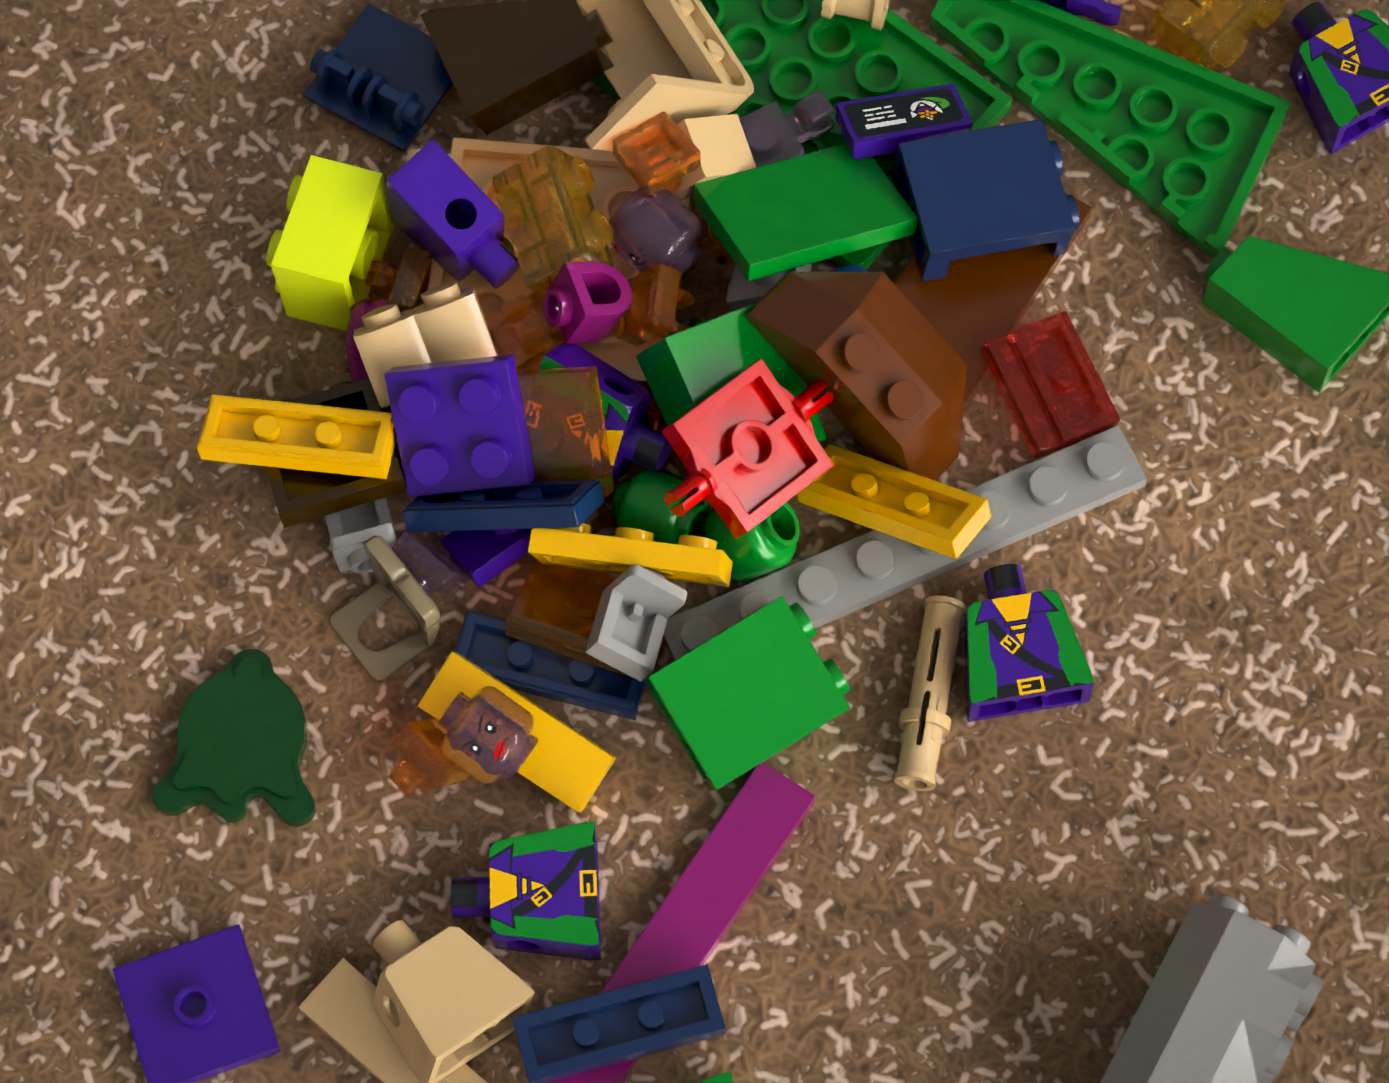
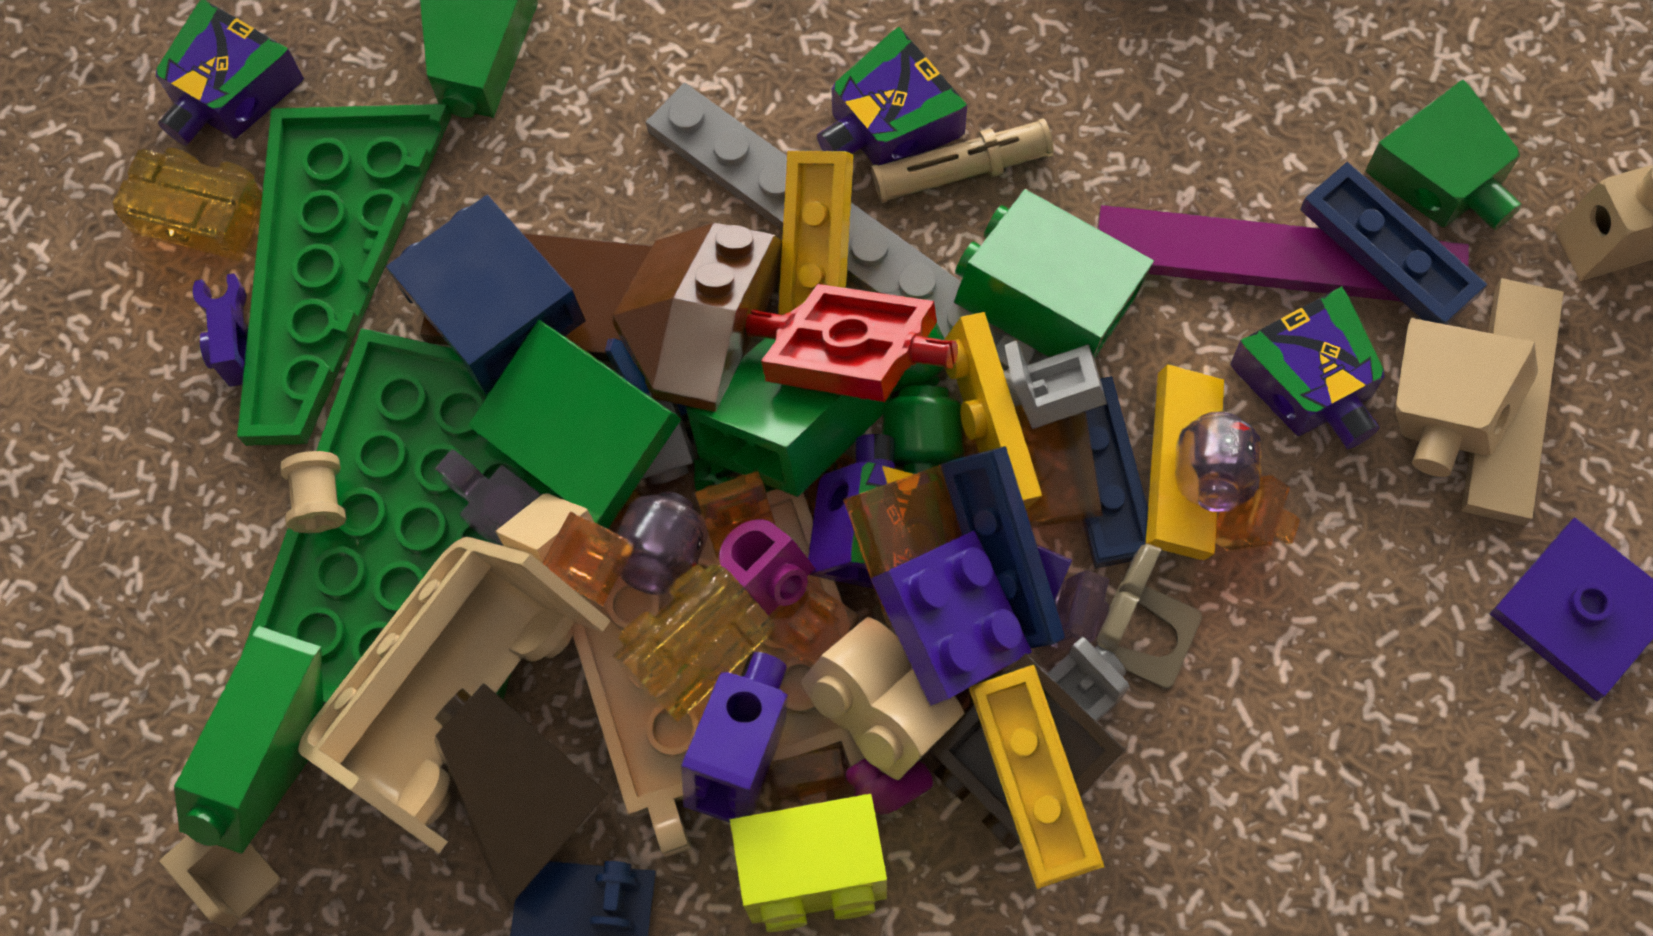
camera: 115 degrees left, 0 degrees up
(237, 743) = (1332, 704): dark green tile -> none
(882, 122) = (434, 391): tile -> none
(1050, 384) = (634, 184): clear red plate -> none

